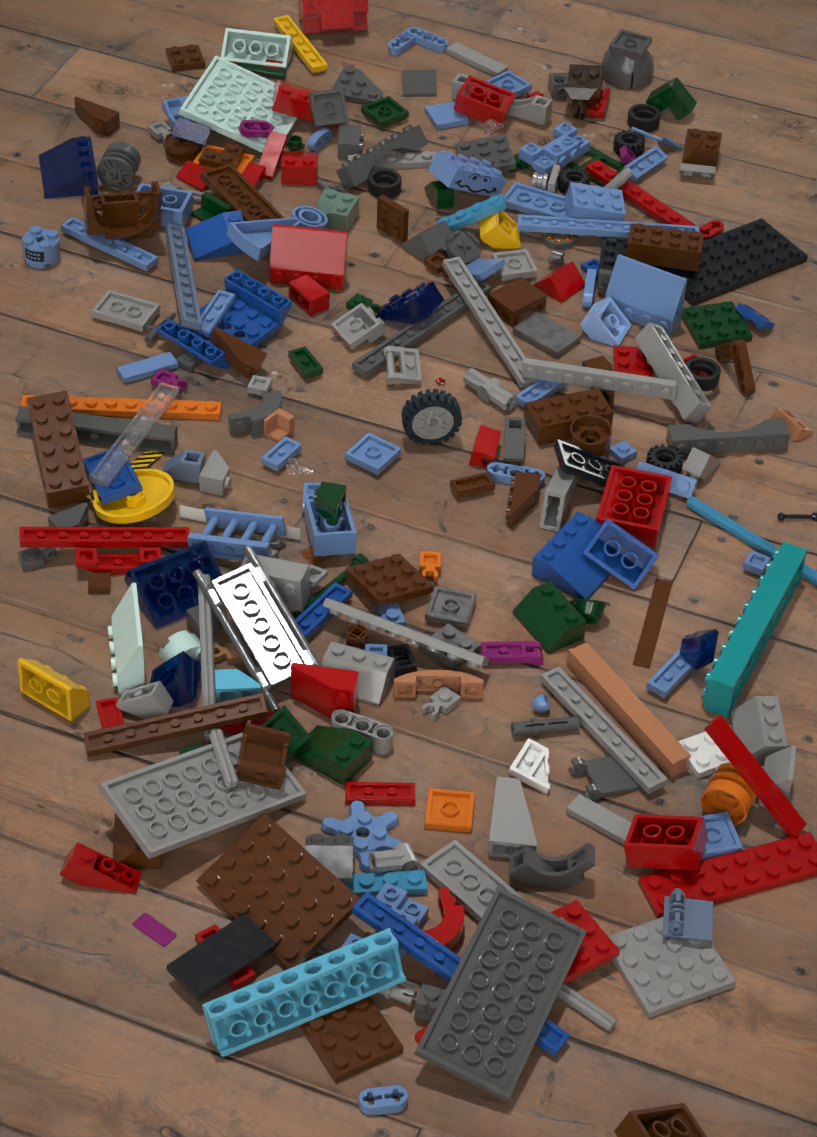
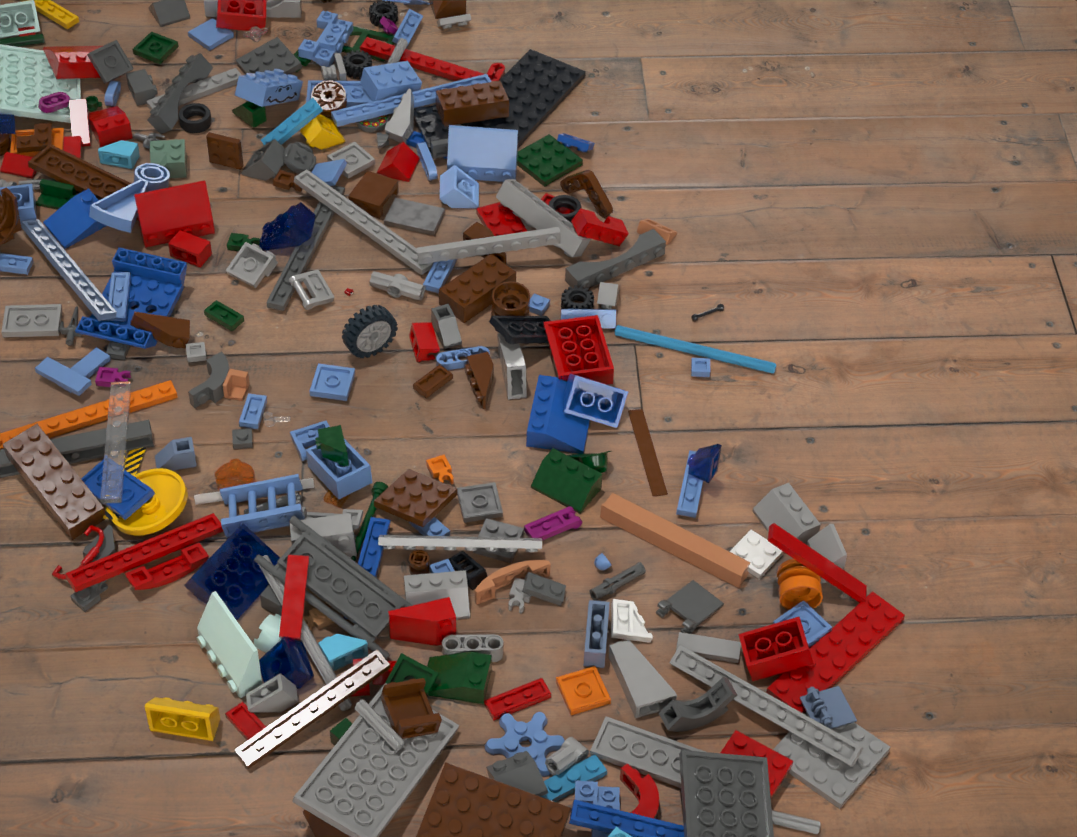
camera: 25 degrees left, 5 degrees up
(55, 519) = (90, 556): none -> red piece
(99, 582) = (161, 596): reddish brown tile -> none
(123, 365) = (63, 376): none -> medium blue tile
(211, 618) = (294, 597): none -> red tile
(215, 475) = (208, 453): light grey slope -> none
(232, 497) = (232, 469): none -> clear orange plate
(257, 474) = (242, 438): none -> dark grey plate
(293, 193) = (120, 154): none -> medium azure slope
(357, 86) = (111, 28): dark grey plate -> none
(465, 705) = (544, 588): none -> dark grey plate
(491, 762) = (596, 634): none -> sand blue brick
(523, 200) = (329, 96): none -> wheel
(585, 243) = (401, 124): none -> light grey slope
(604, 730) = (666, 566): light grey plate -> none
(627, 894) = (769, 707): none -> light grey plate
(713, 392) = (589, 226): none -> red arch
(753, 629) = (736, 430): teal brick -> none

